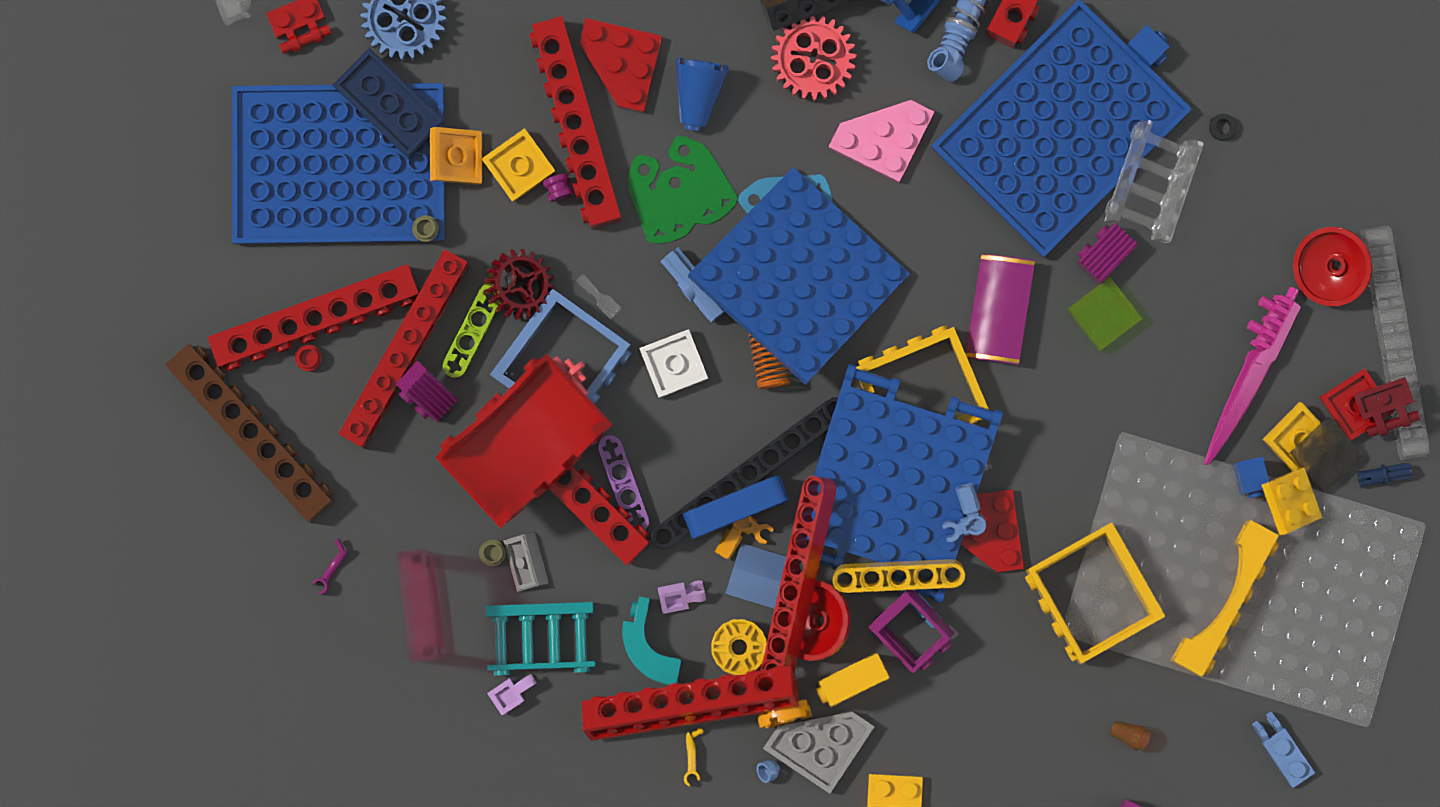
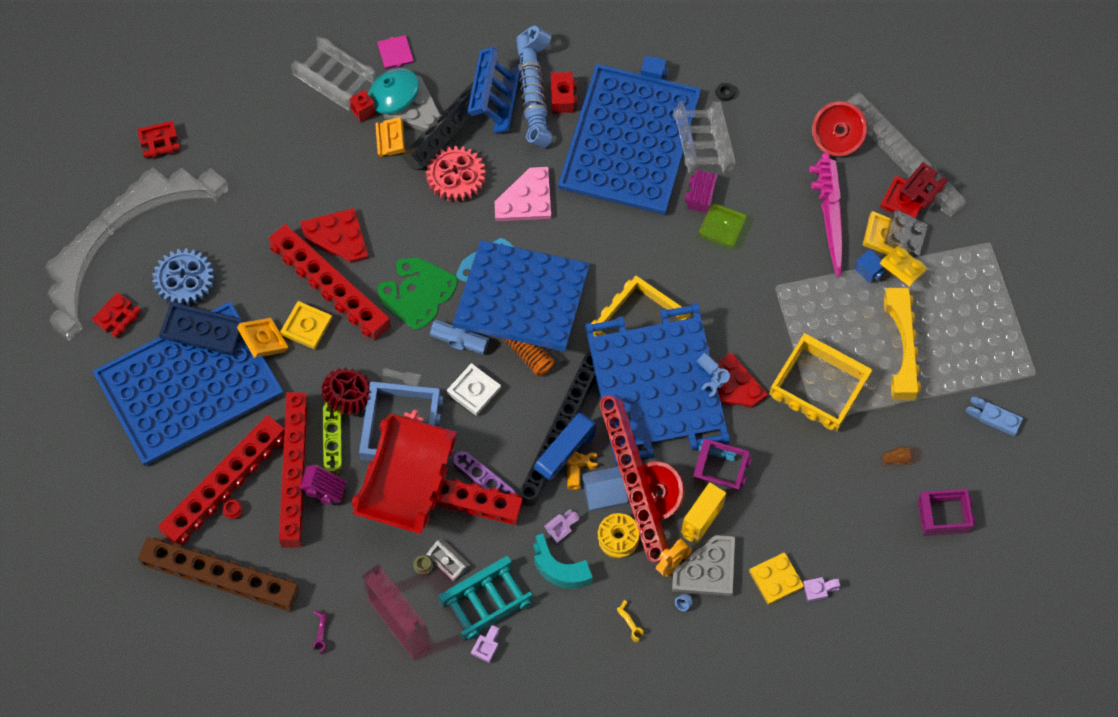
camera: 30 degrees left, 20 degrees down
(425, 228) = (267, 388): olive plate -> none
(558, 187) = (339, 324): magenta wheel -> none
(698, 90) = (395, 223): blue cone -> none
(702, 709) = (608, 580): red brick -> none
(911, 581) = (698, 426): yellow beam -> none
(1000, 309) = (658, 255): magenta slope -> none
(1384, 474) = (947, 228): dark blue axle -> none

